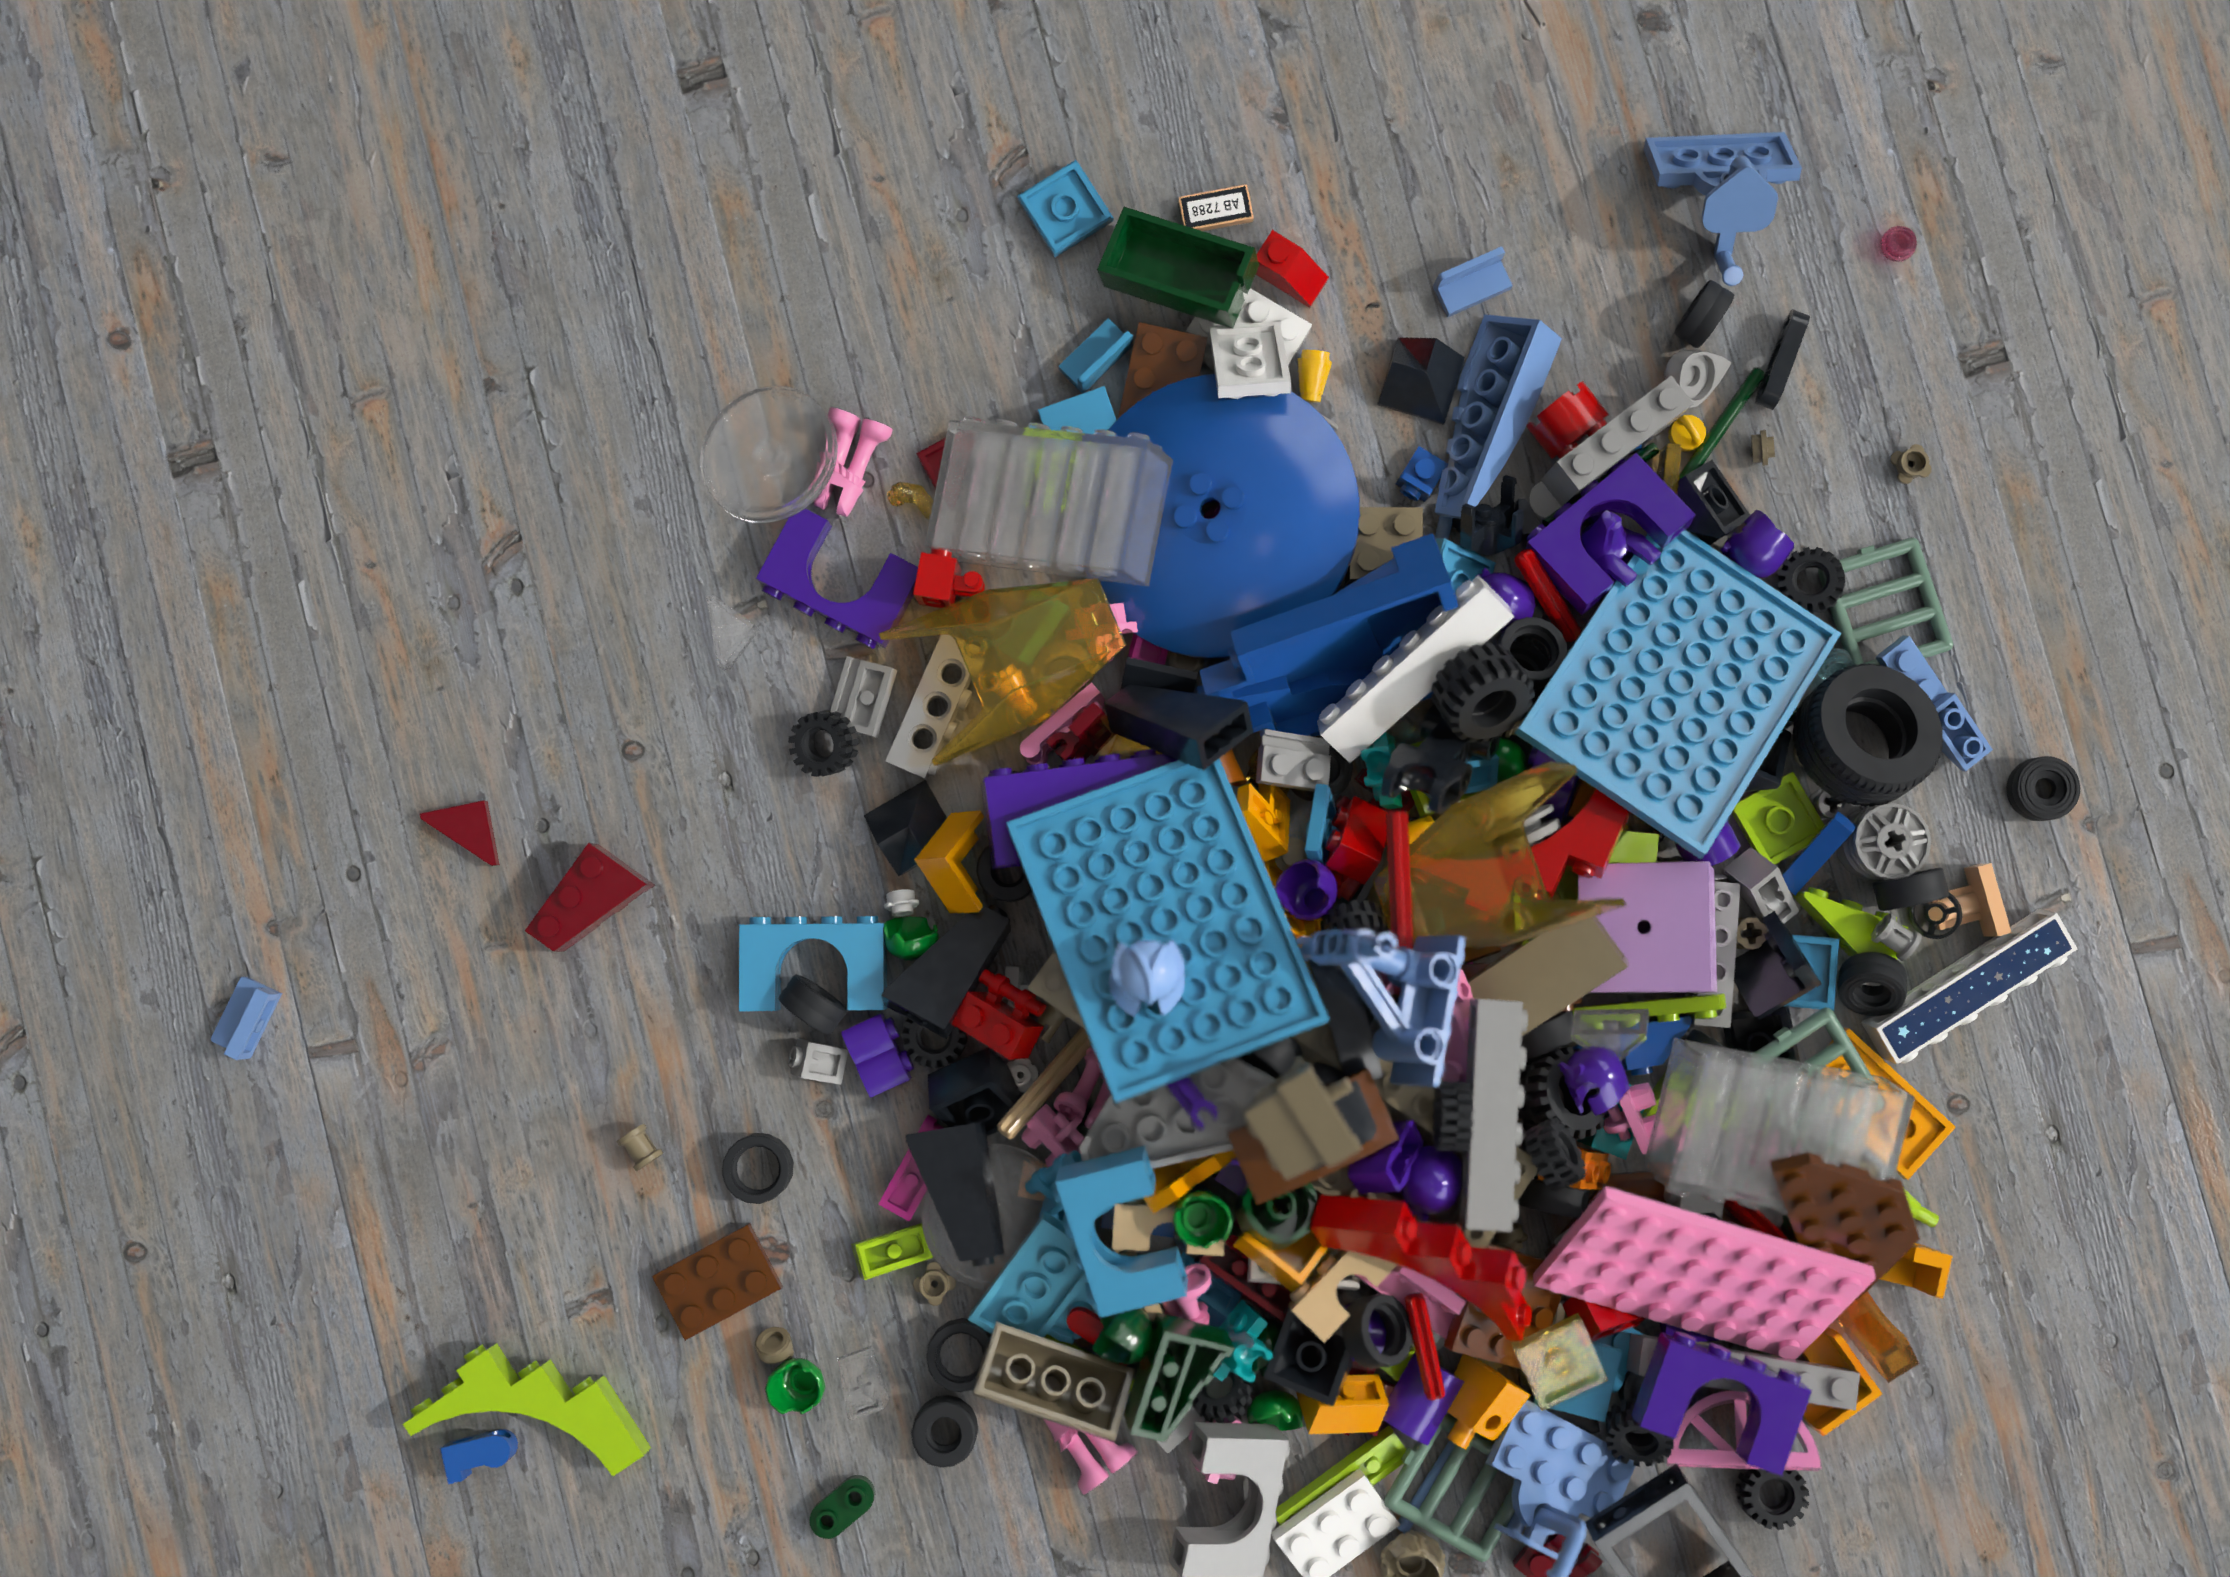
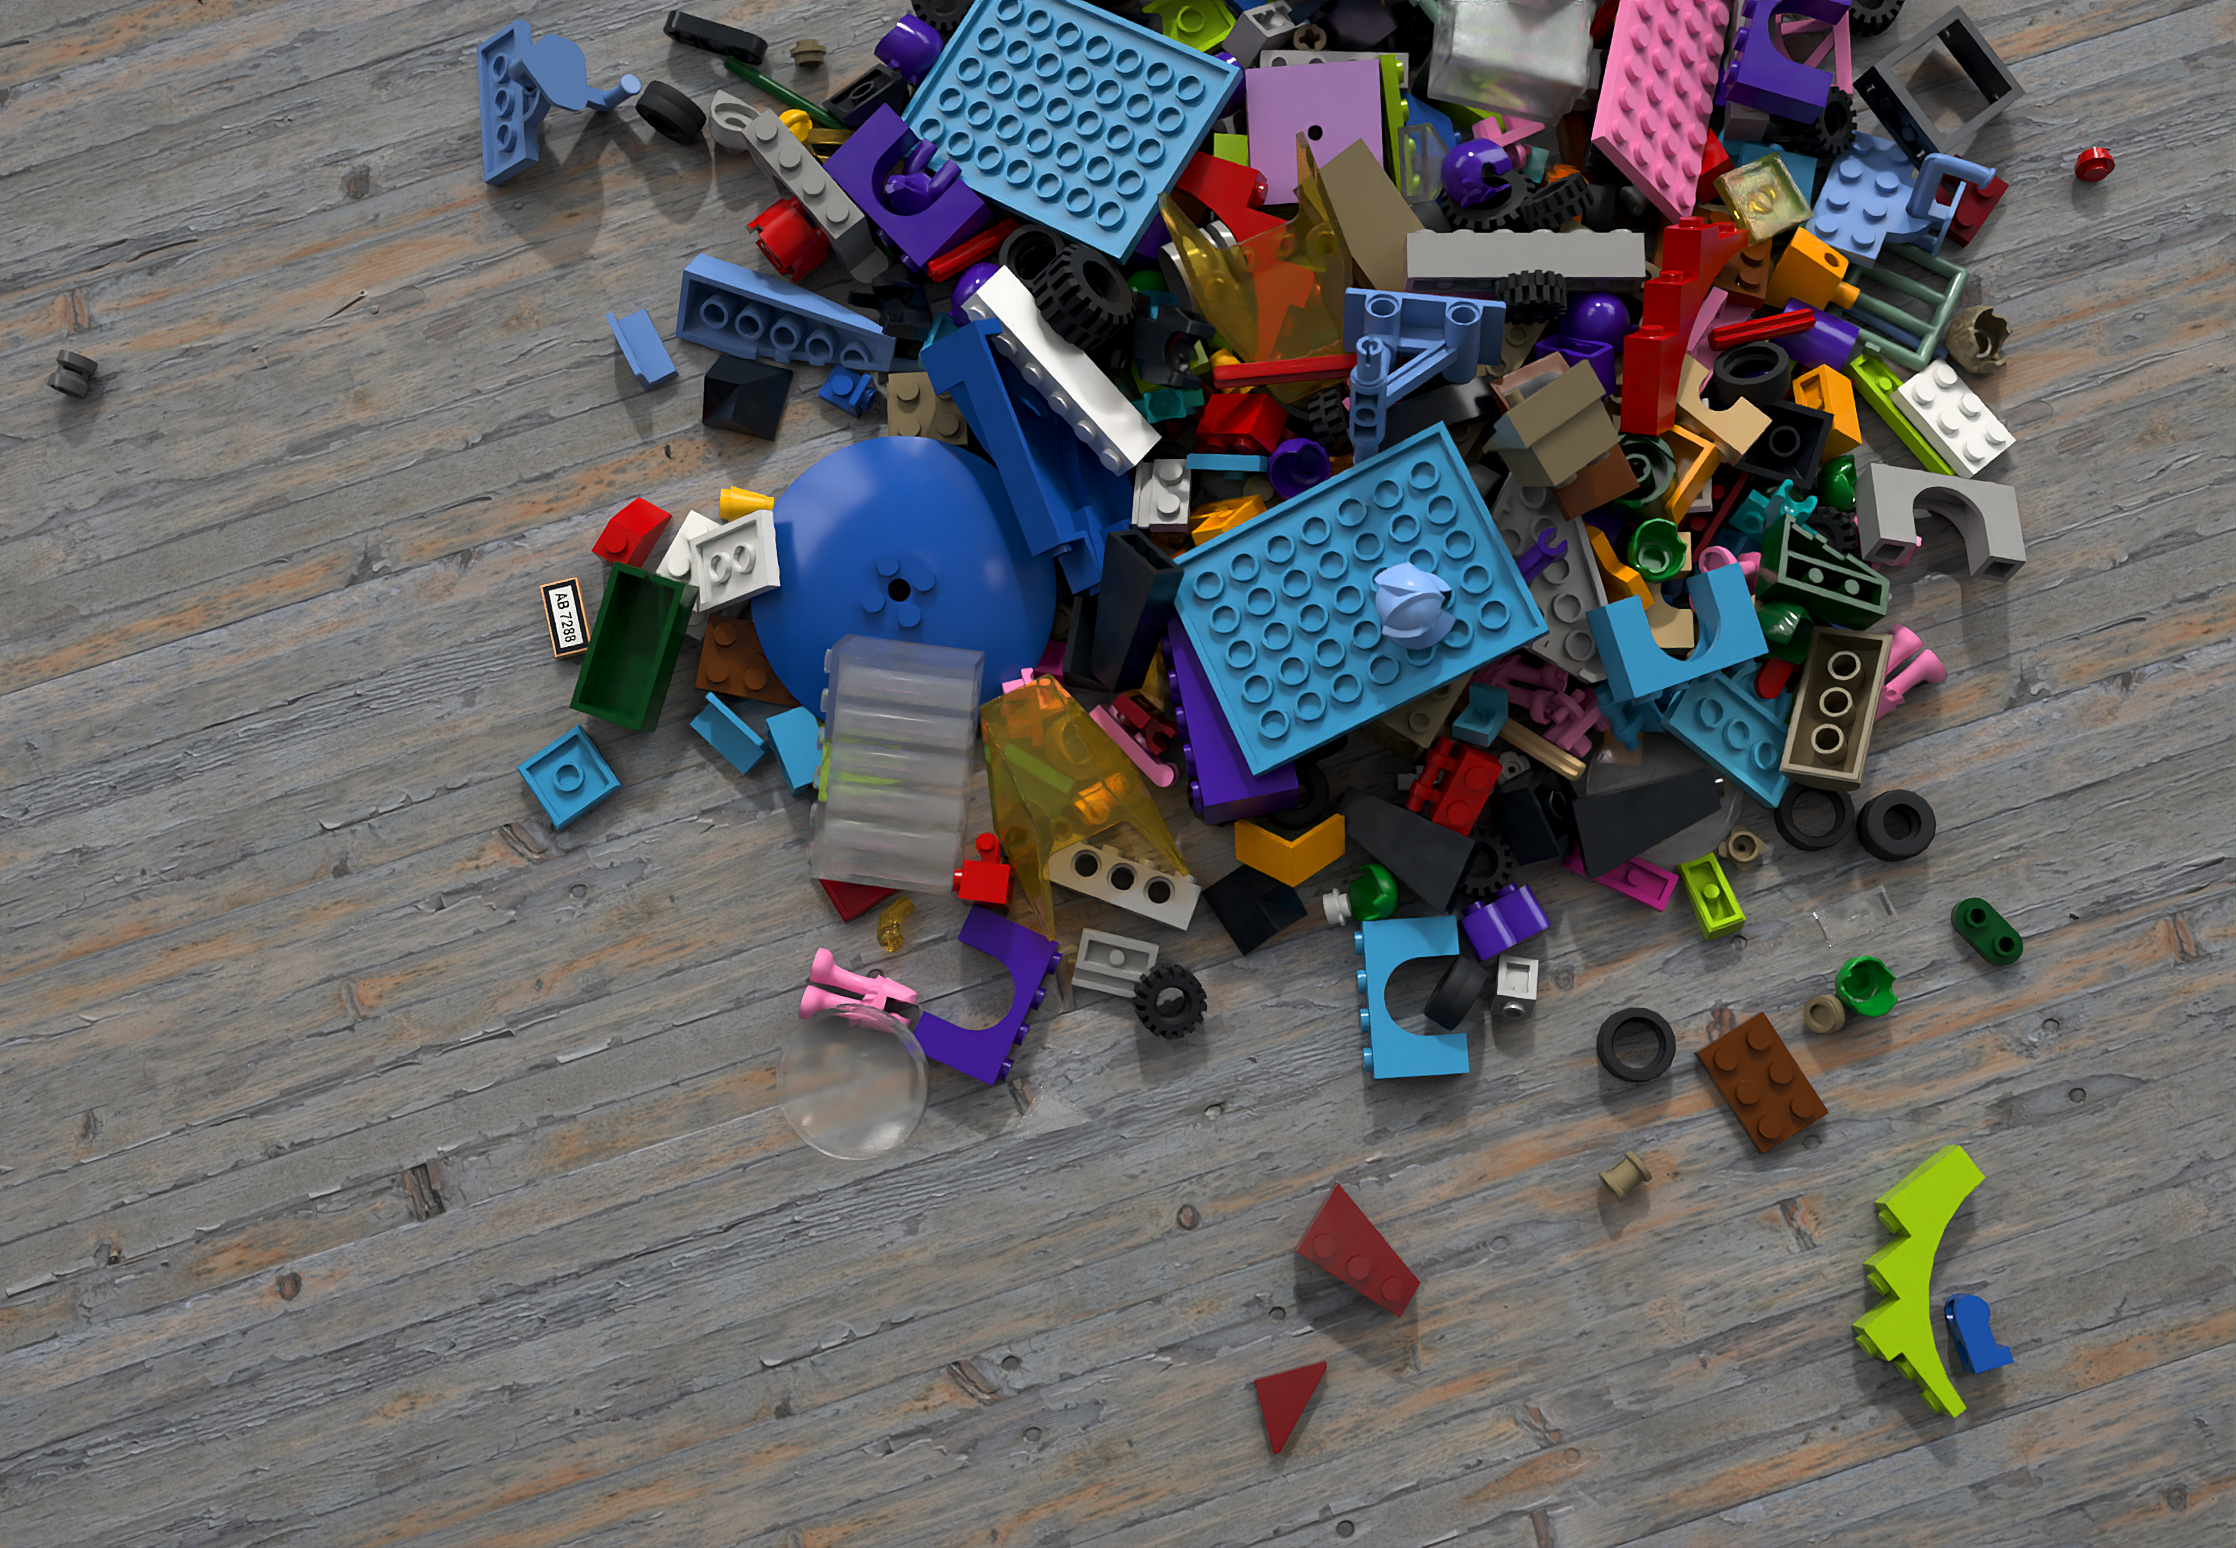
camera: 85 degrees left, 5 degrees down
(1064, 1047) = (1483, 716): none -> medium azure bracket

